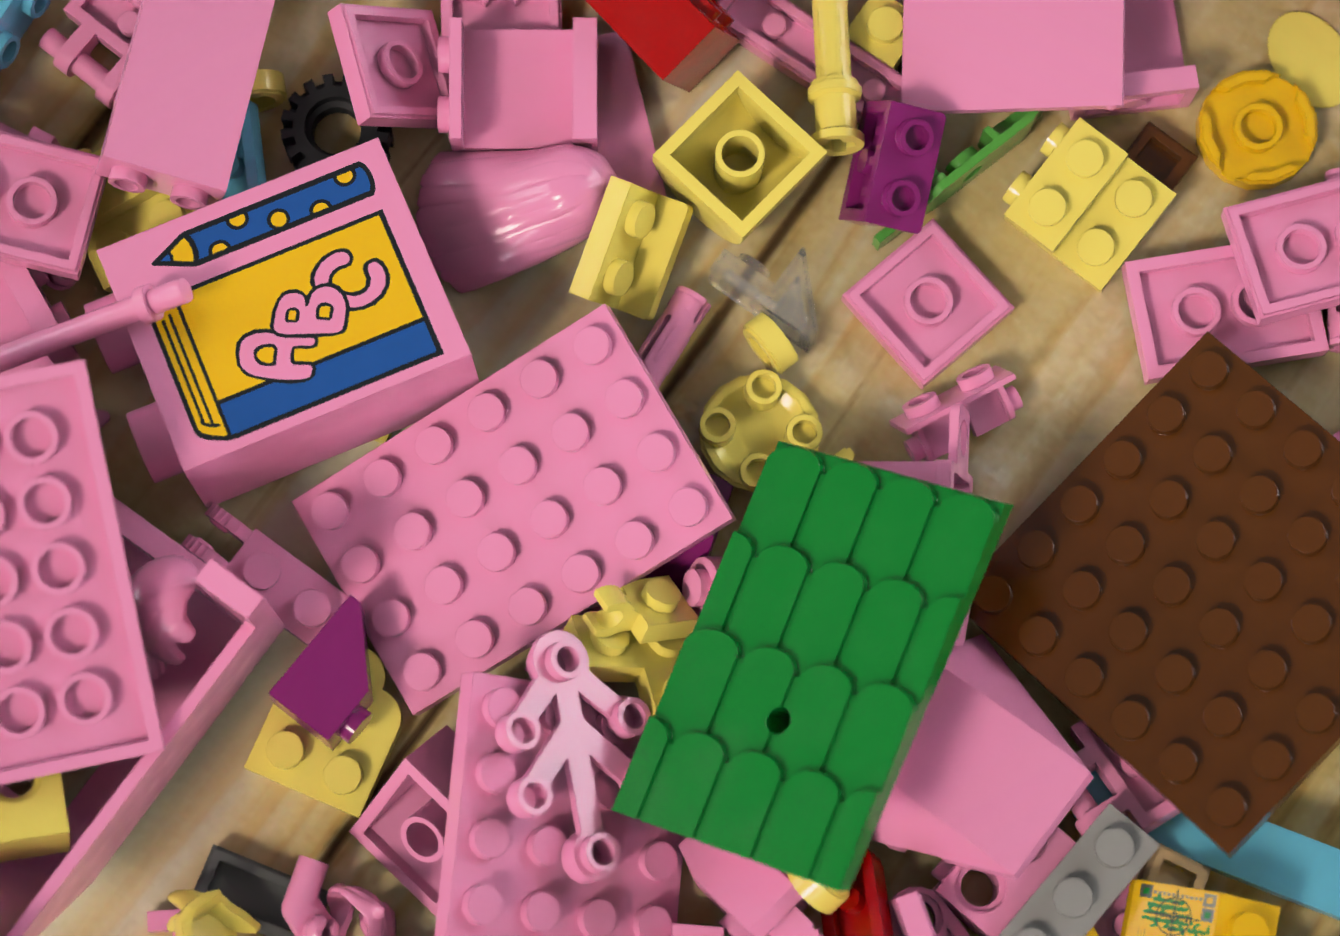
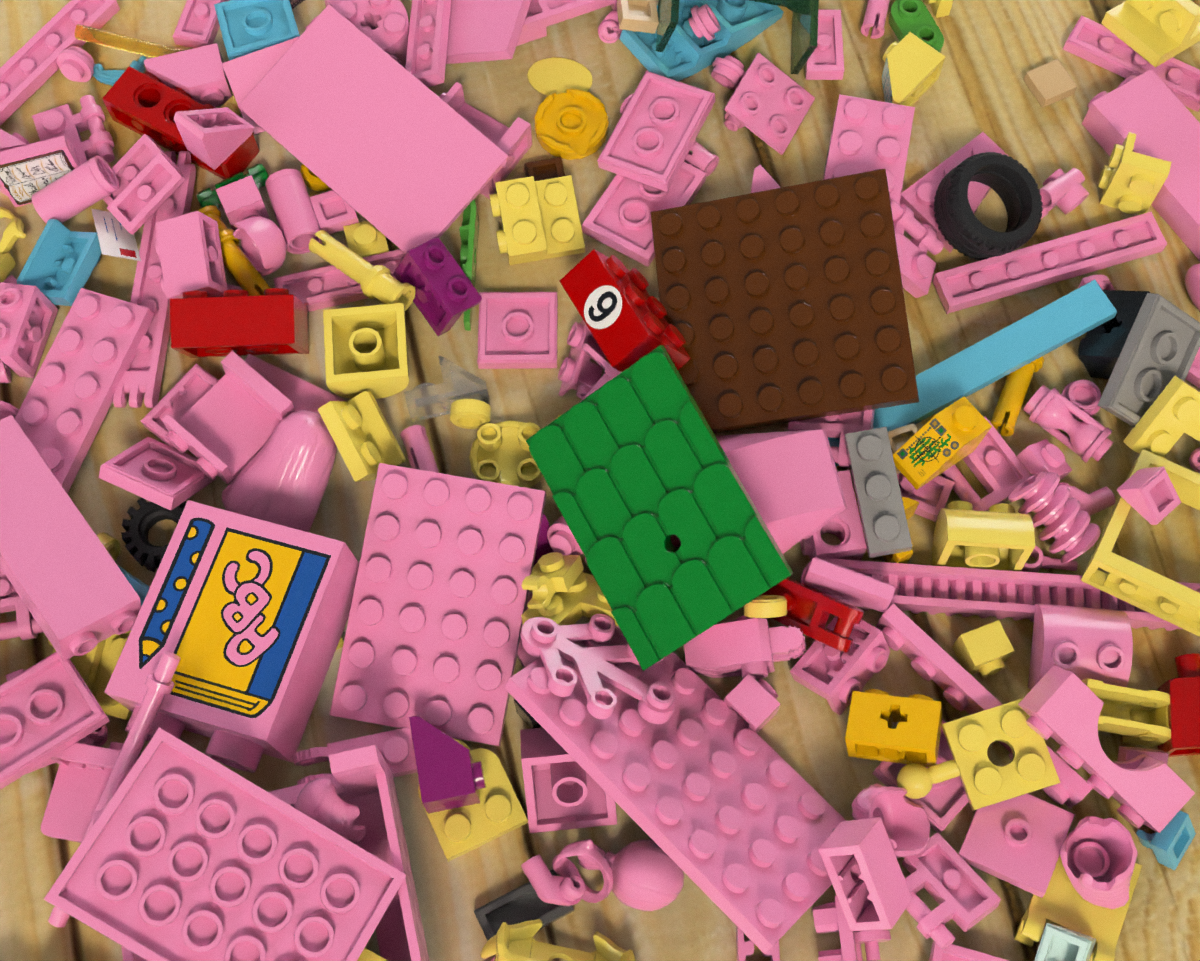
camera: 45 degrees left, 10 degrees down
(1033, 420) = (621, 311): none -> red brick

